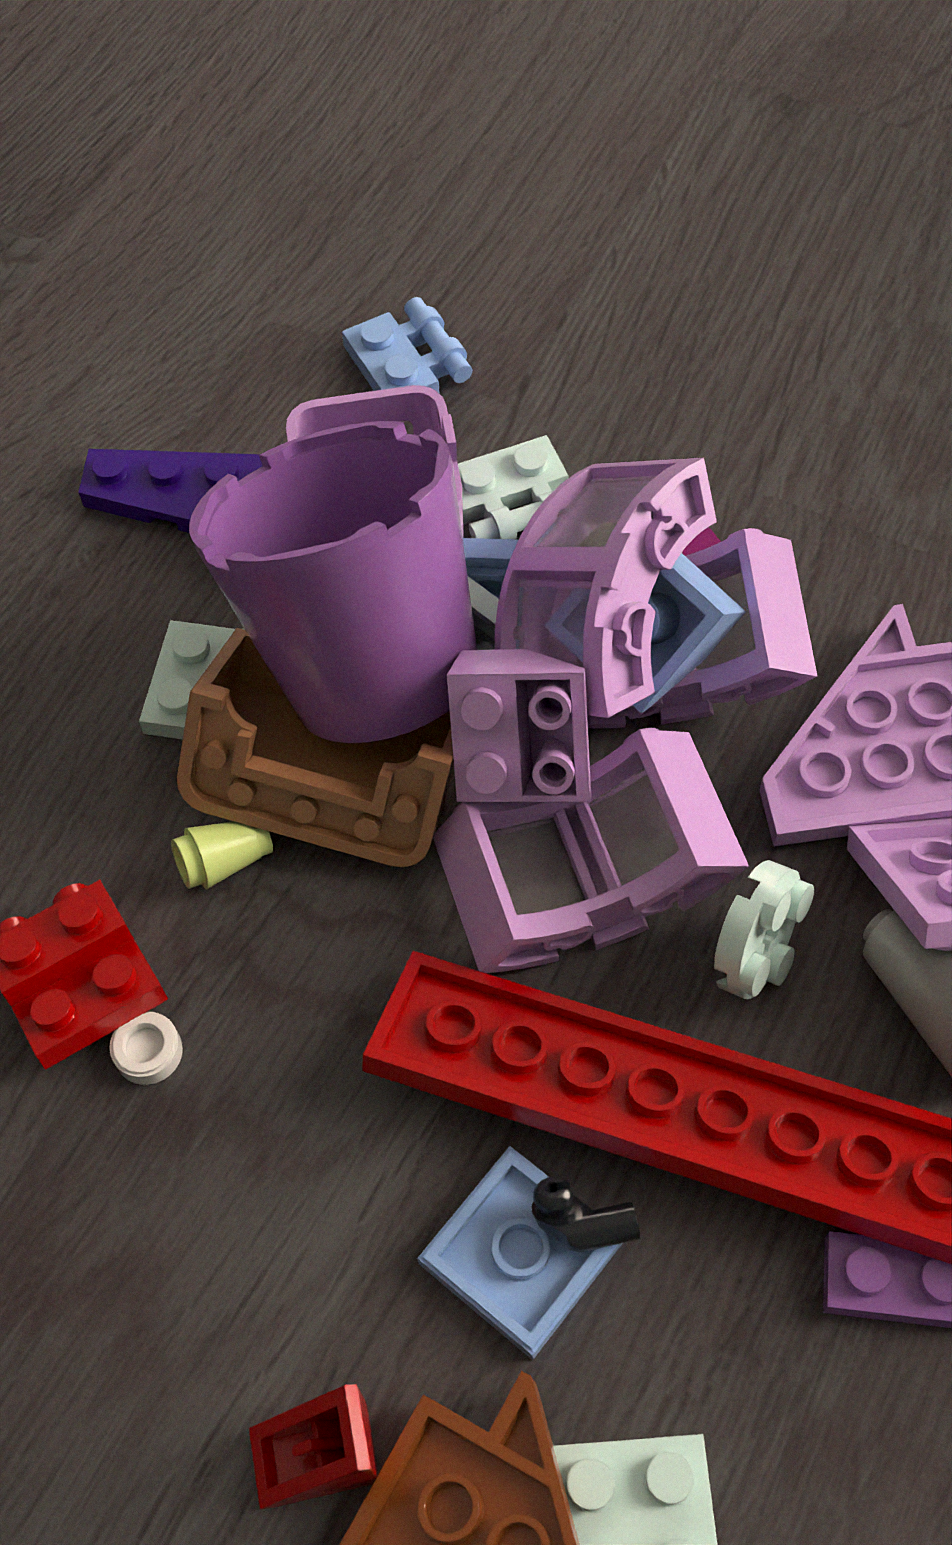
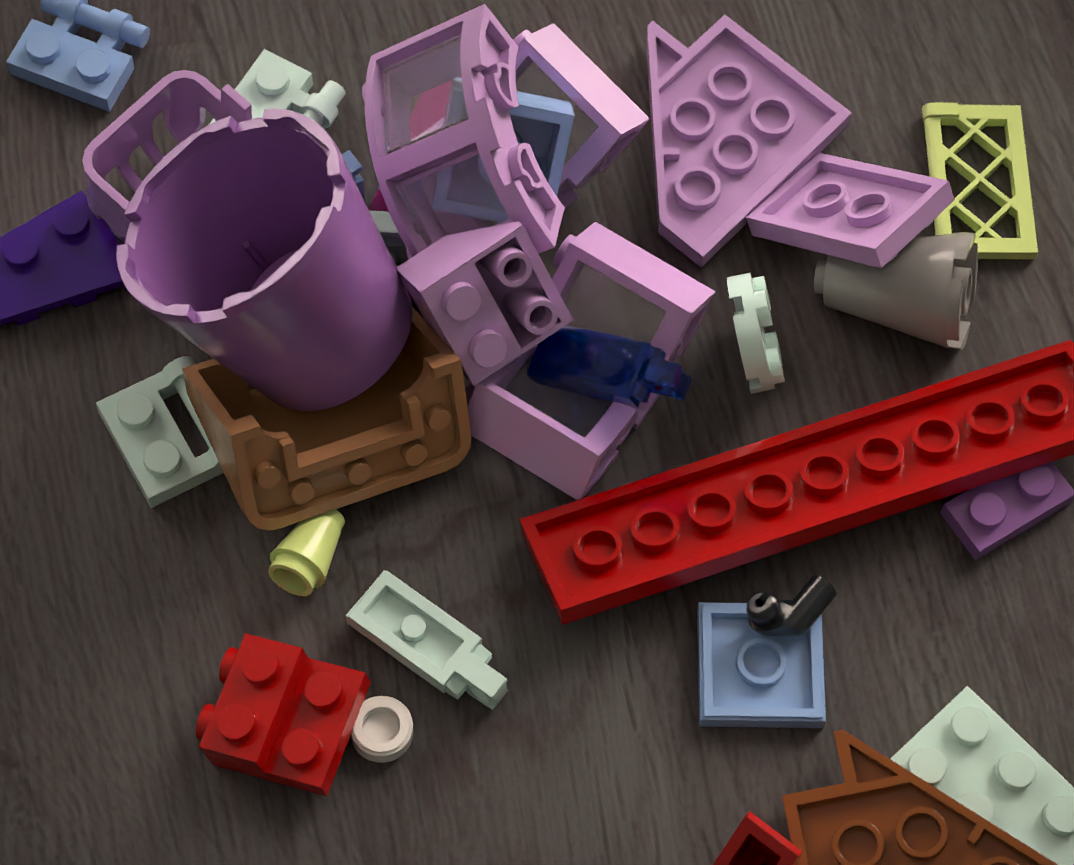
camera: 45 degrees left, 5 degrees up
(244, 1000) = (427, 640): none -> light aqua hinge
(591, 866) = (606, 367): none -> clear blue hinge

